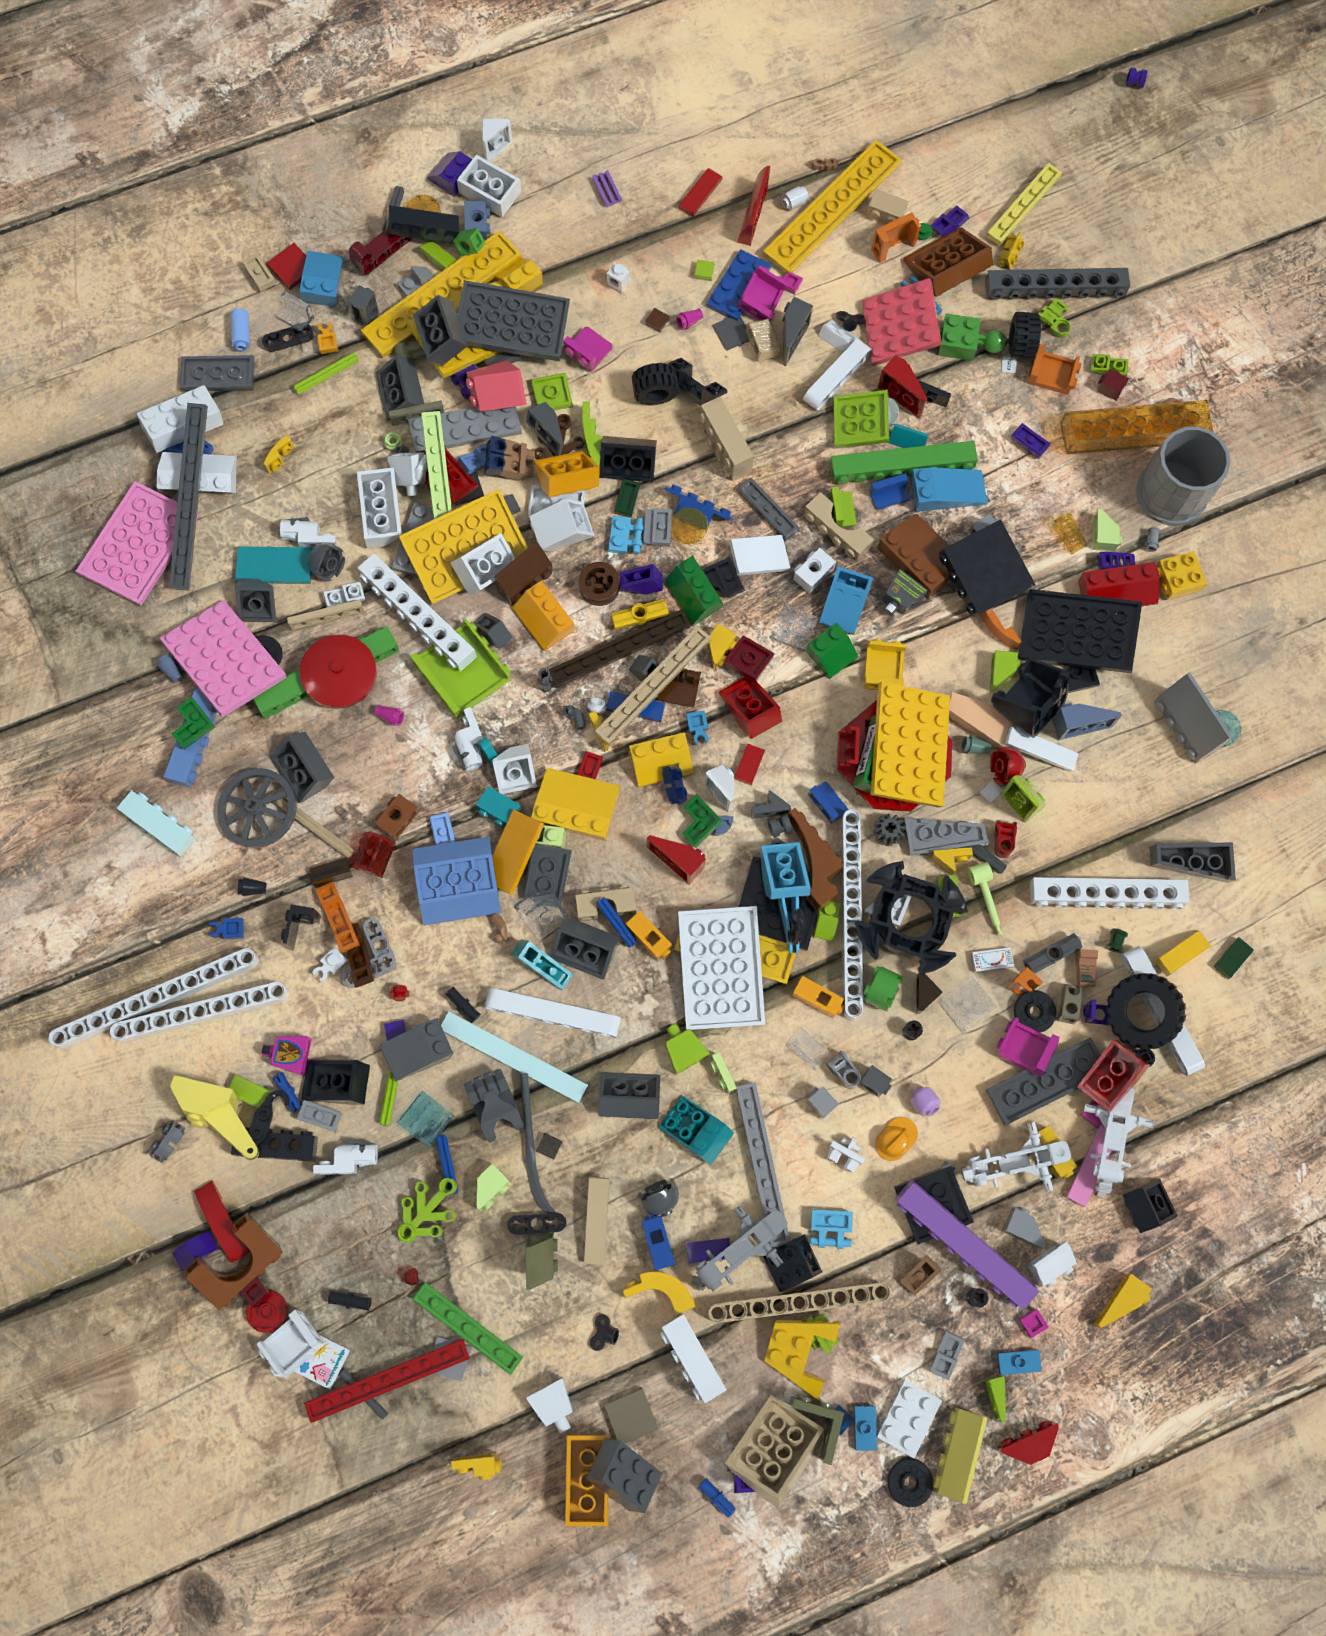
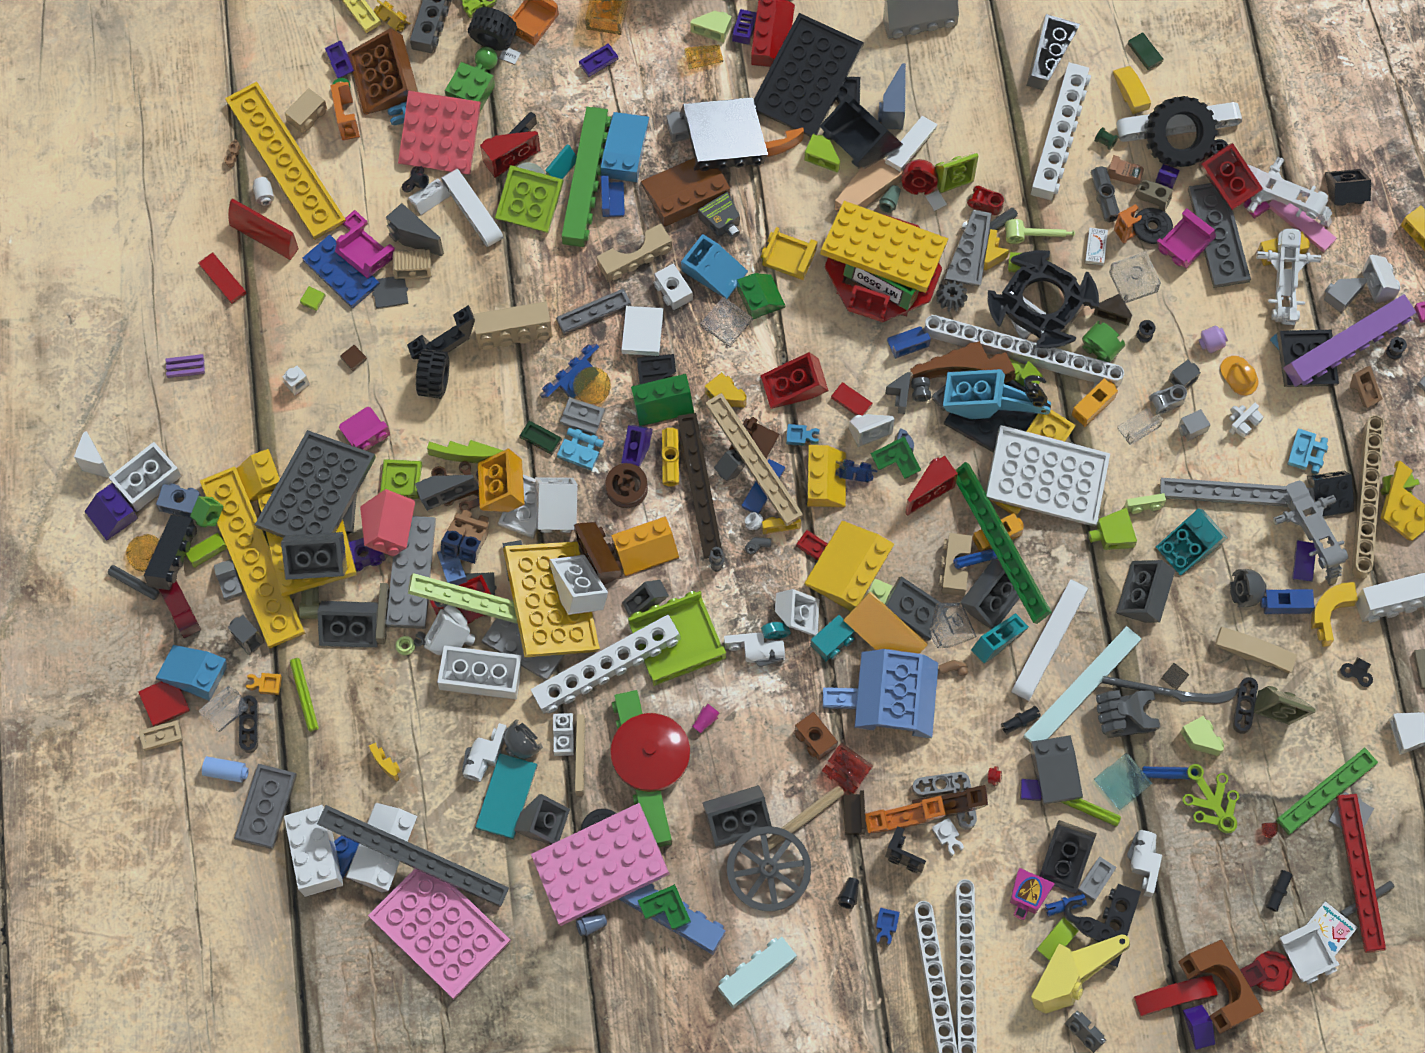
camera: 70 degrees left, 5 degrees down
(627, 458) = (500, 421): black slope -> none
(629, 936) = (1002, 544): none -> green plate
(688, 318) = (363, 327): dark pink cone -> none
(749, 659) = (747, 369): dark red plate -> none
(843, 508) = (620, 243): lime panel -> none

